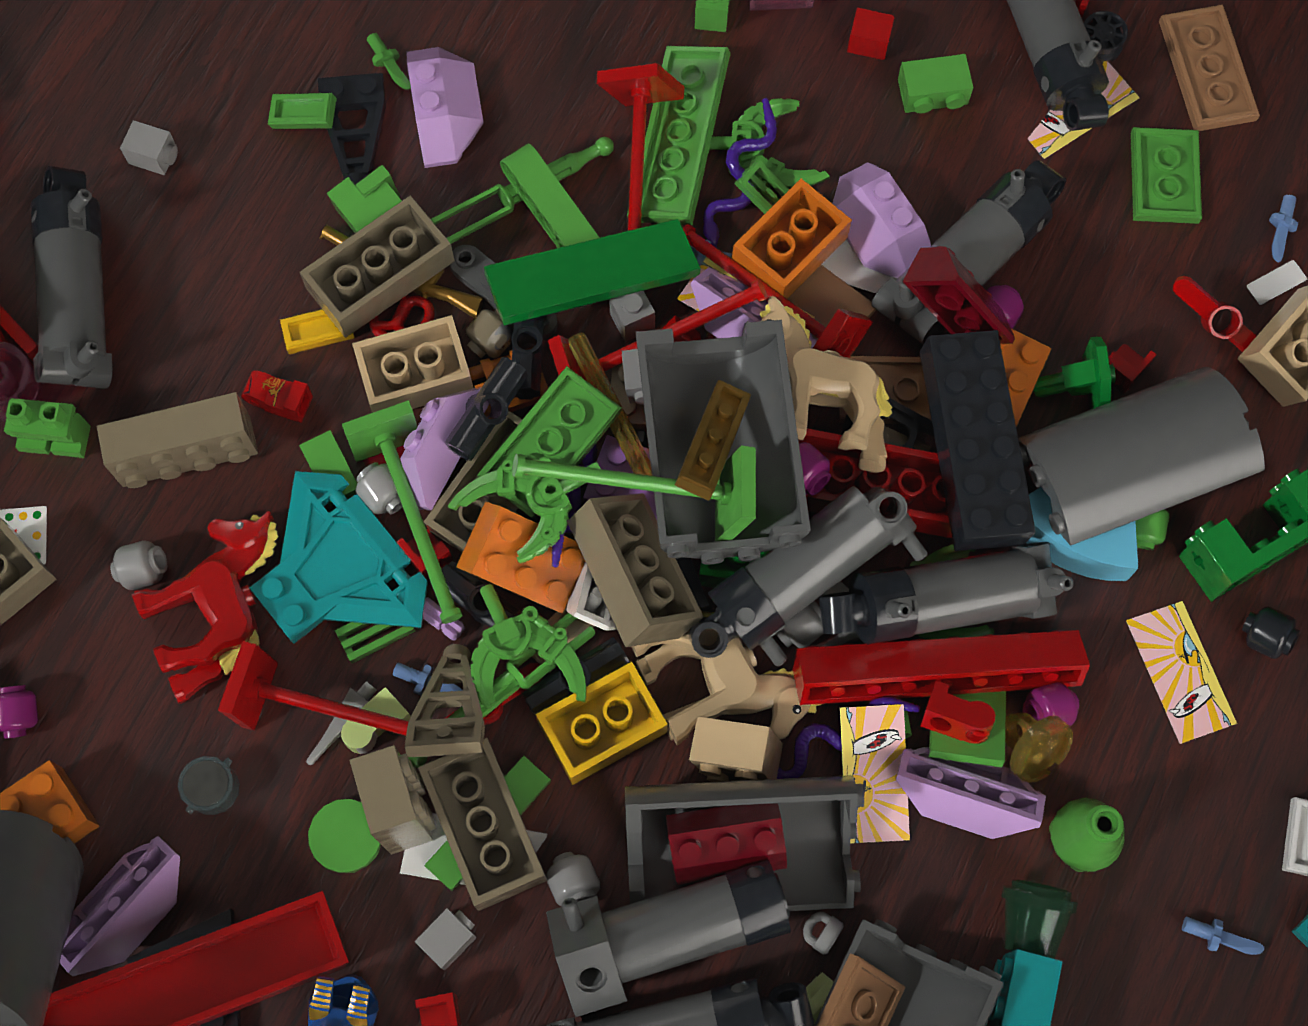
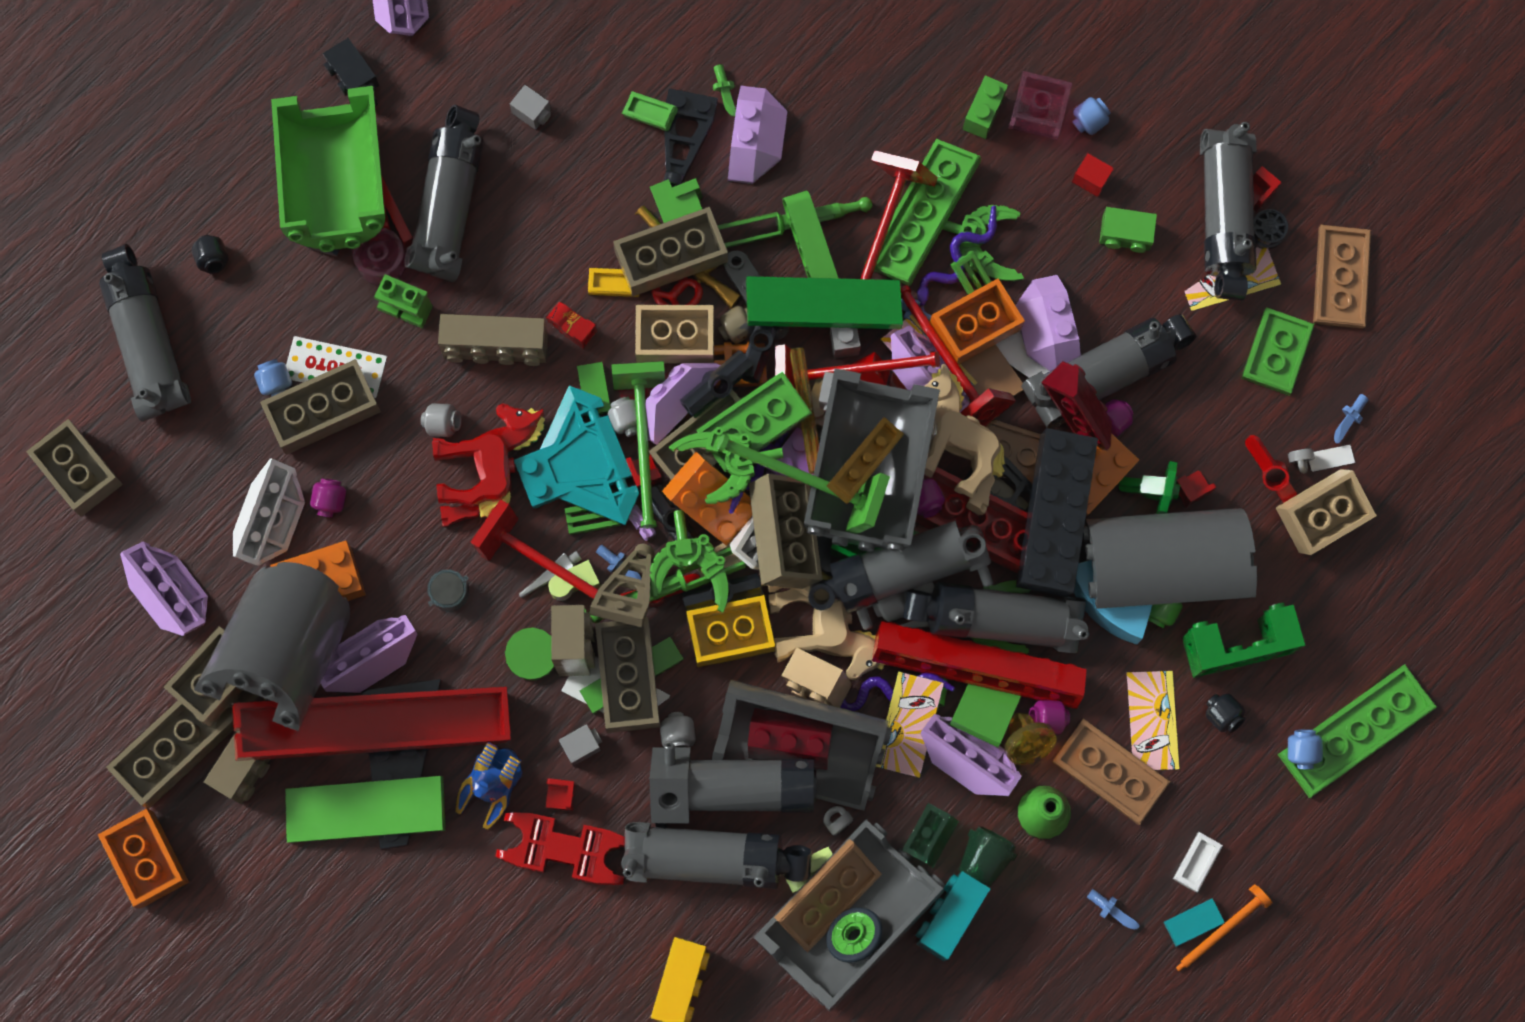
camera: 15 degrees right, 5 degrees up
(953, 913) = (930, 835): none -> clear green brick
(957, 716) = (977, 703): red leg -> none
(1153, 754) = (1111, 772): none -> medium nougat tile
(1244, 289) = (1301, 457): none -> light grey tile

